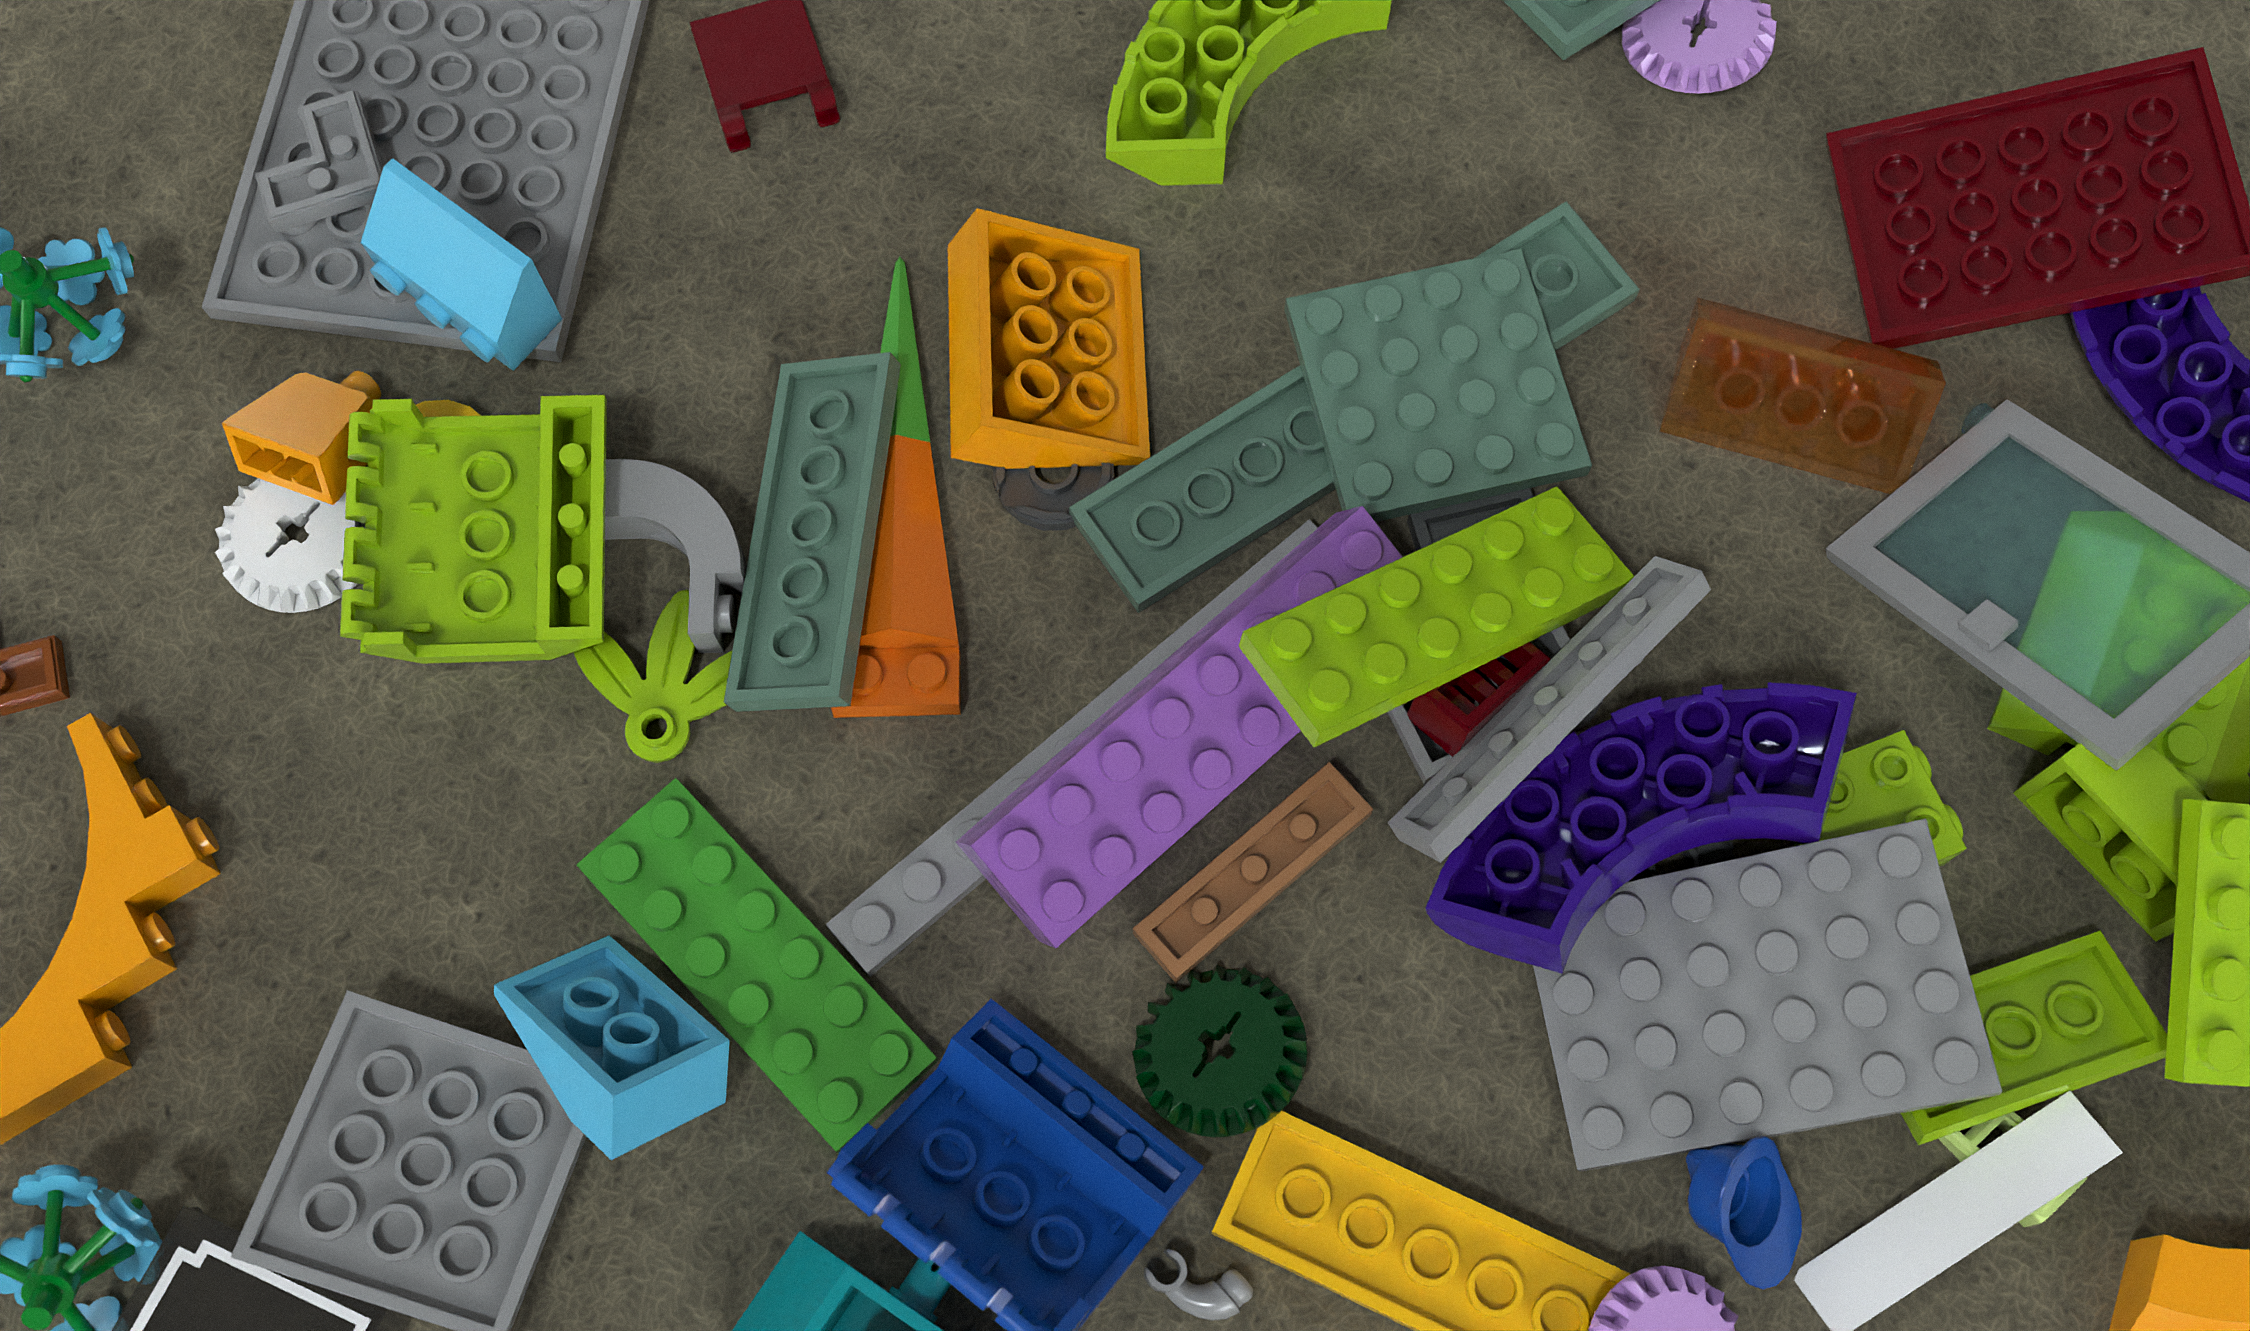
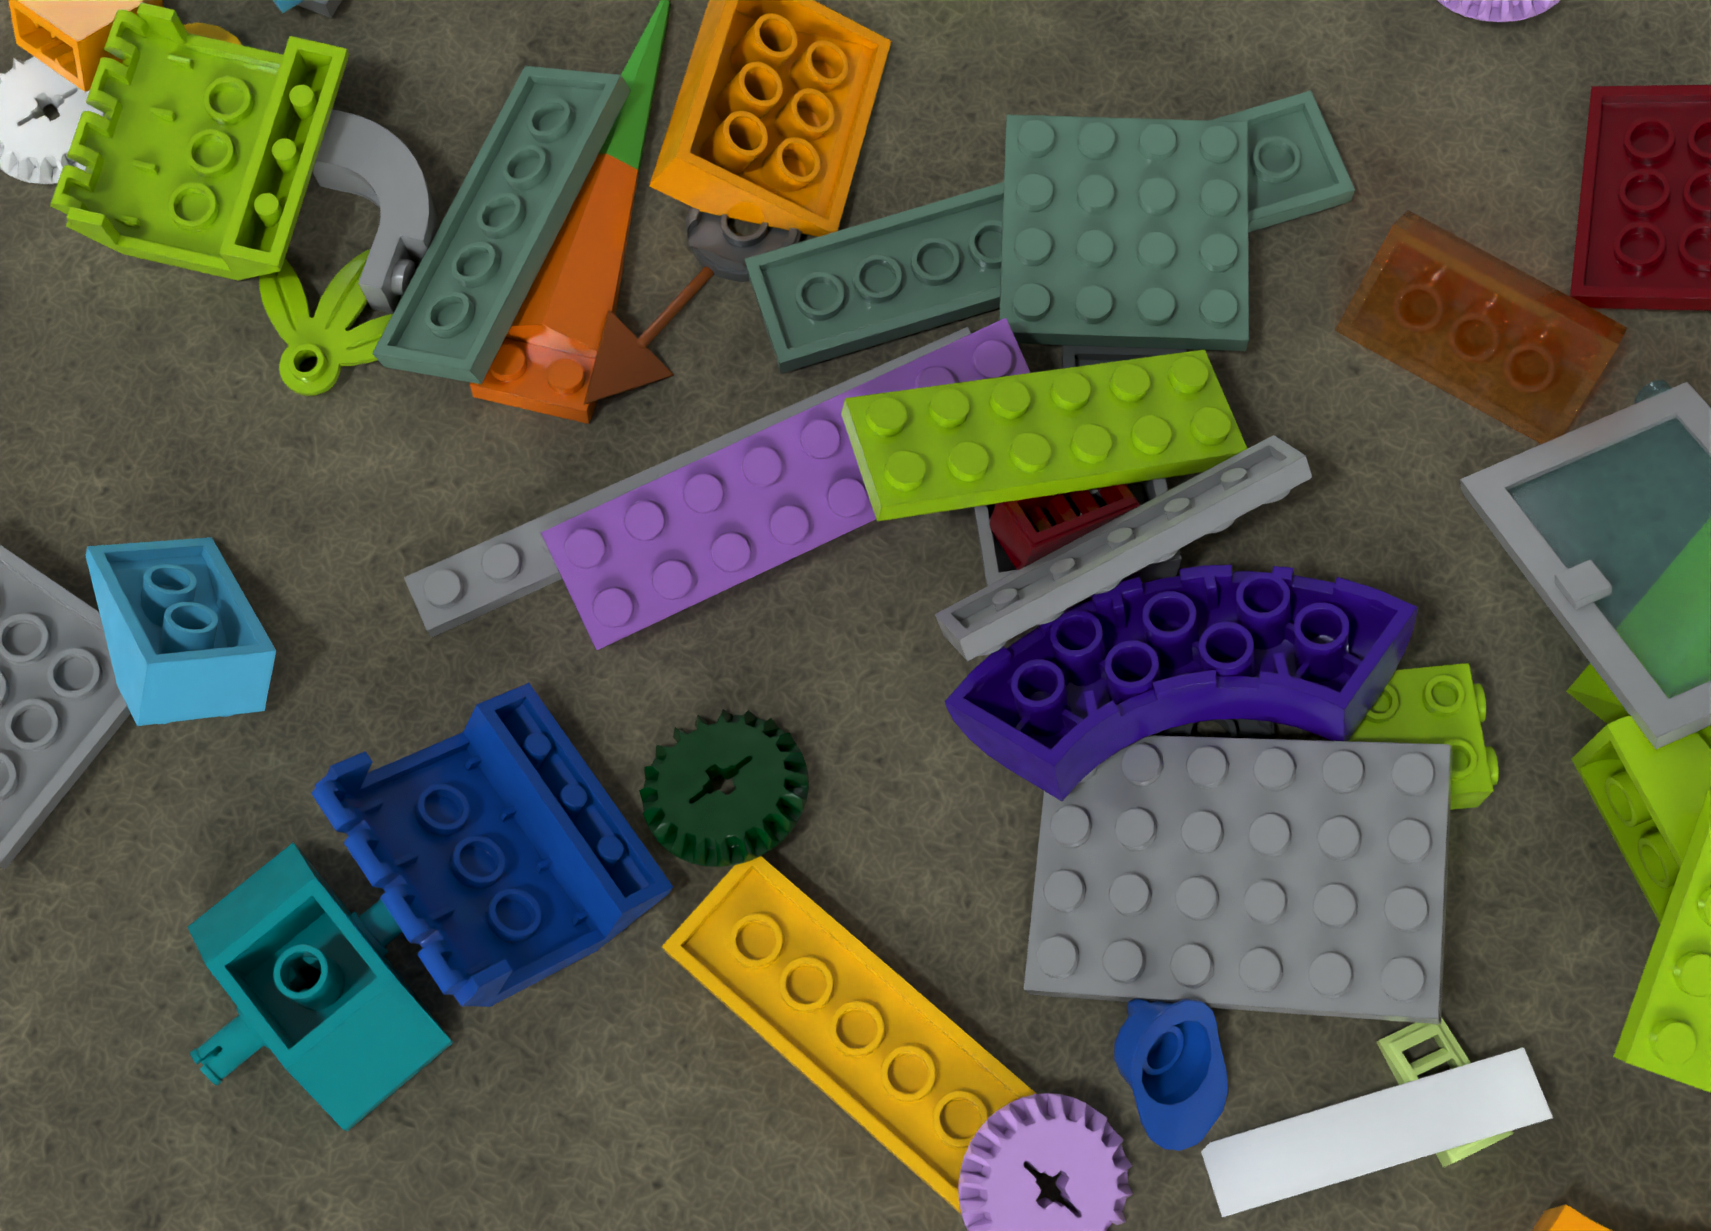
camera: 20 degrees right, 0 degrees up
(758, 965) = (333, 595): bright green plate -> none
(978, 638) = (624, 359): none -> dark orange piece
(1206, 1301) = (636, 1009): light grey arm -> none
(1252, 872) = (808, 634): medium nougat plate -> none
(2052, 1029) = (1517, 986): lime plate -> none

